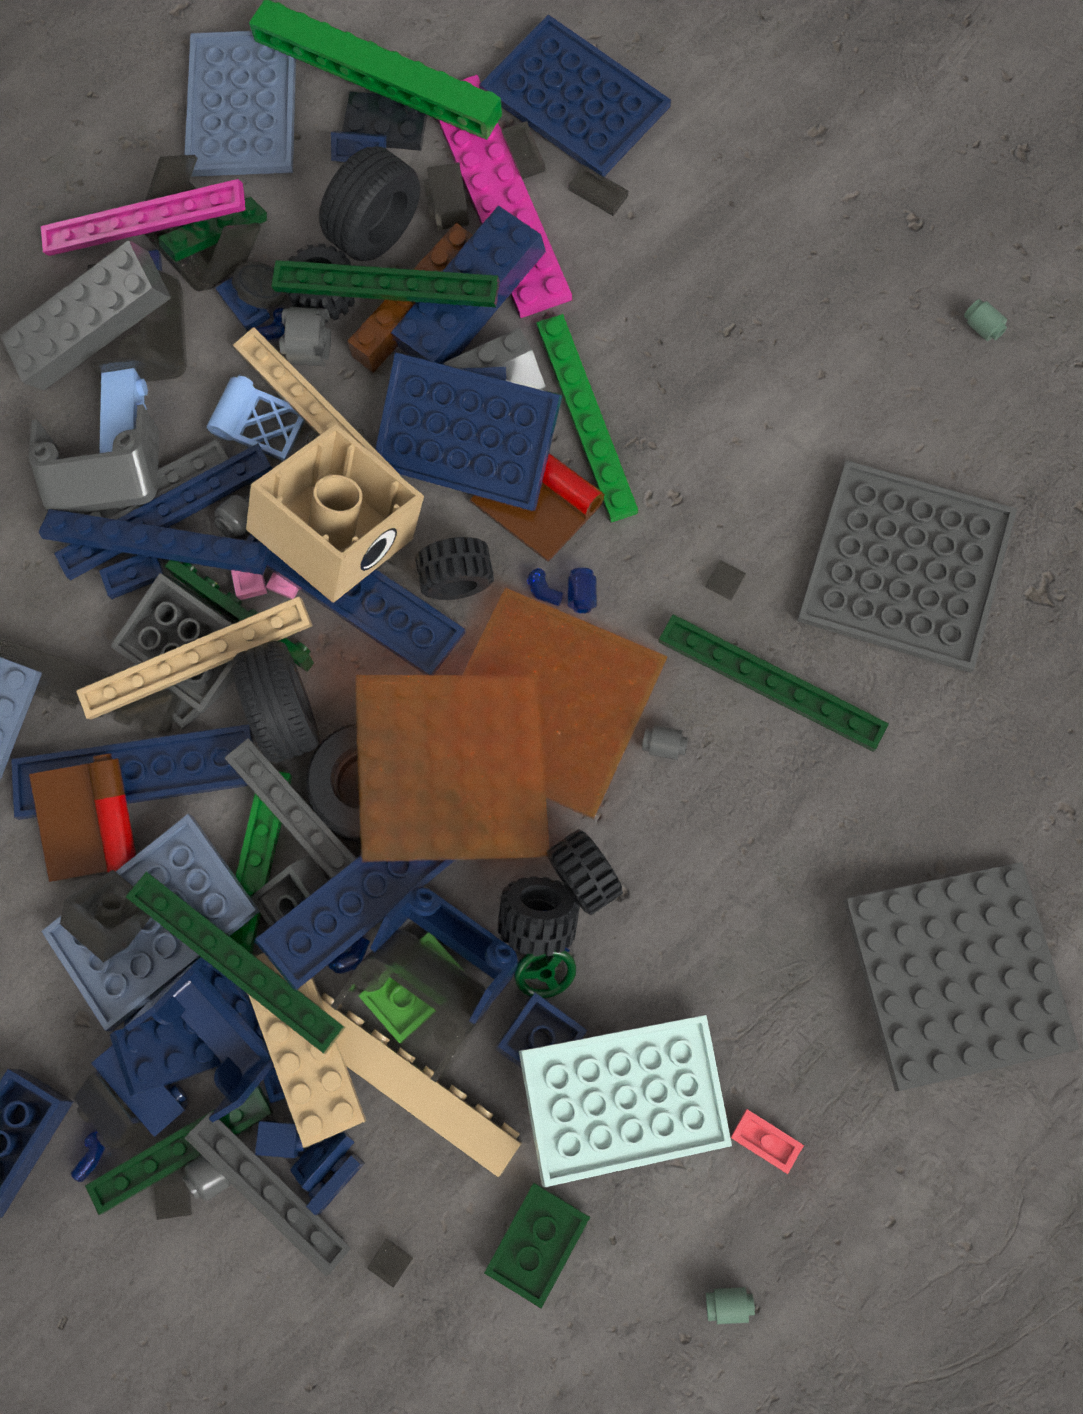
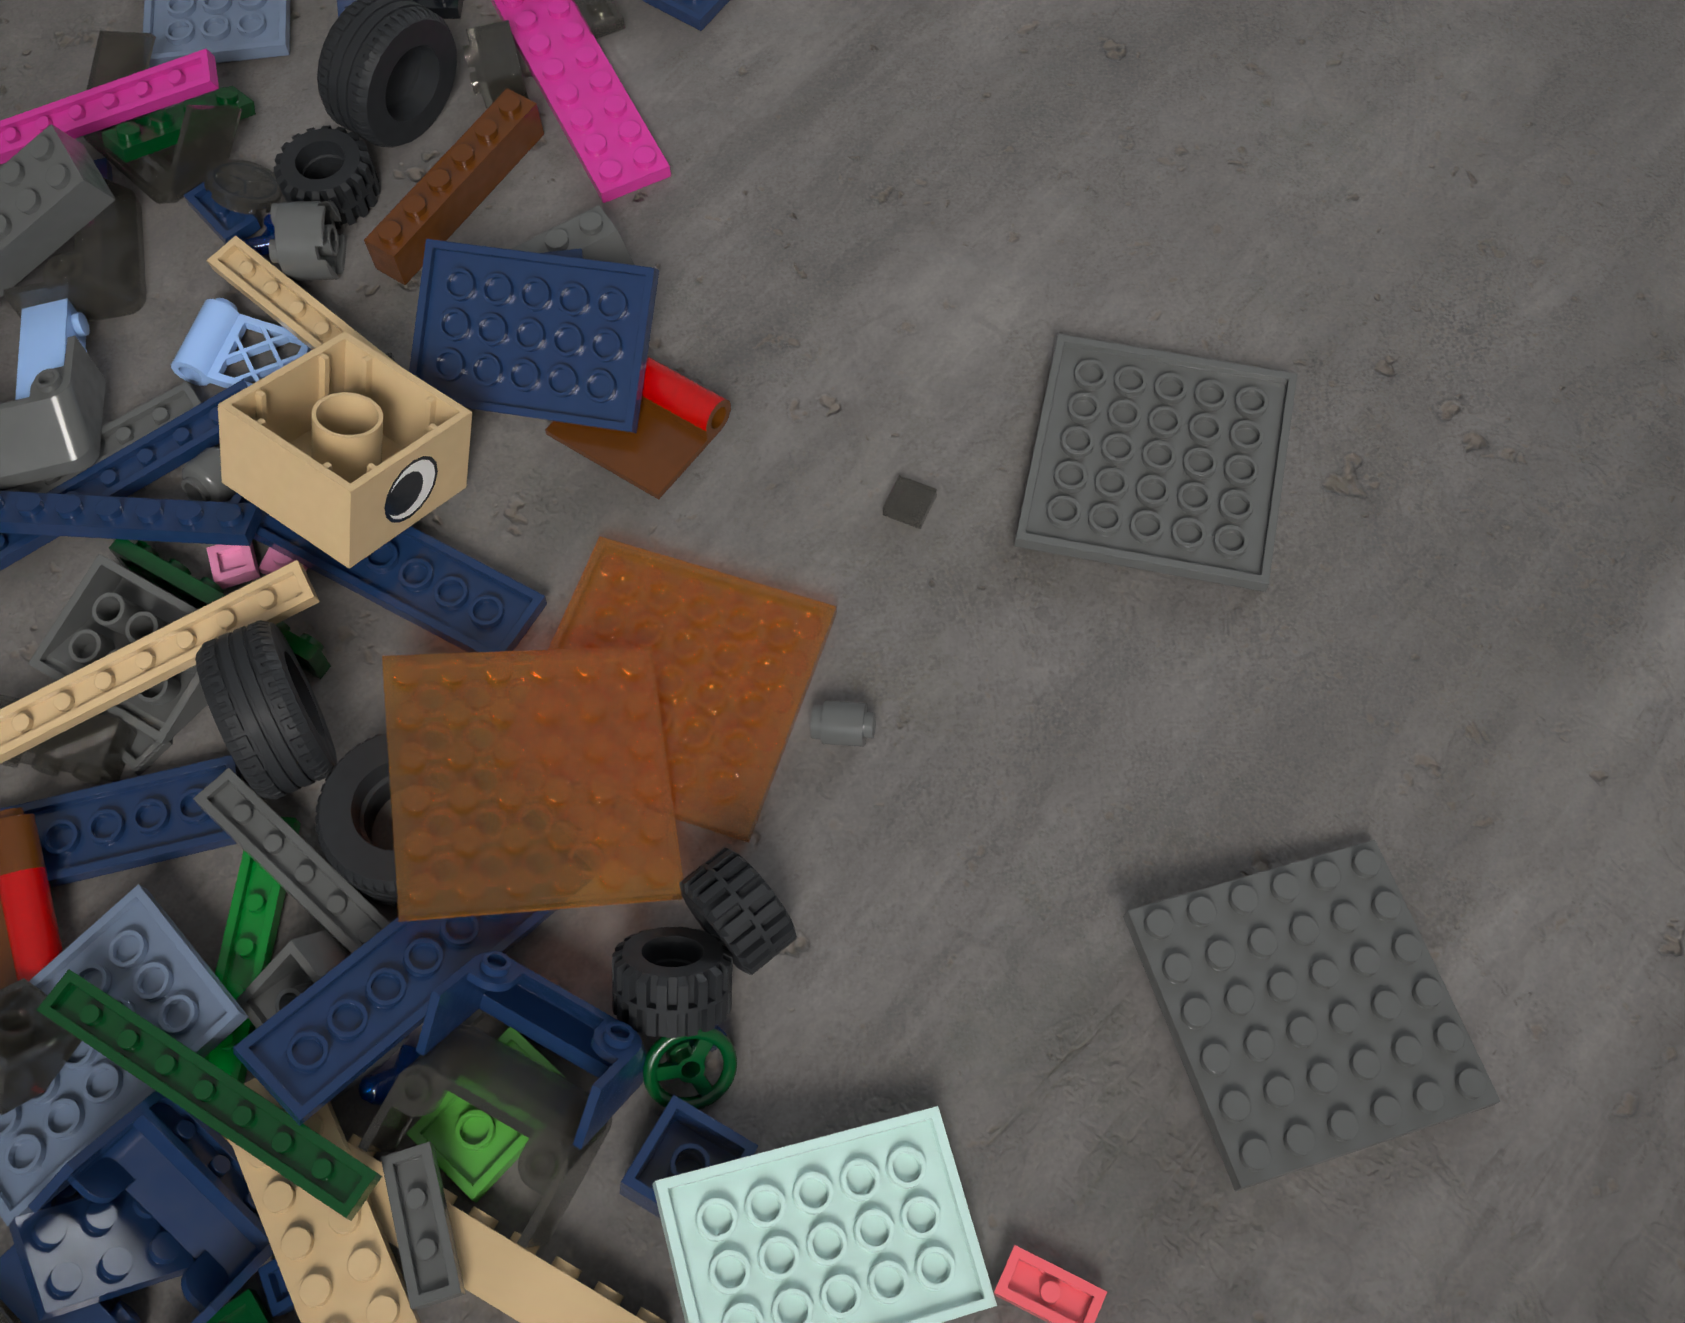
camera: 10 degrees left, 10 degrees down
(130, 575) = (59, 568): dark blue plate -> none
(369, 1059) = (422, 1226): none -> dark grey plate
(386, 283) = (411, 160): dark green plate -> none
(454, 568) = (523, 512): black tyre -> none
(499, 248) = (532, 161): dark blue brick -> none
(540, 588) = (651, 537): clear blue arm -> none
(582, 590) = (708, 531): clear blue brick -> none
(587, 418) = (702, 317): green plate -> none
(598, 190) = (696, 44): clear smoke tile -> none
(773, 683) = (991, 629): dark green plate -> none
(986, 320) = (1222, 151): sand green brick -> none

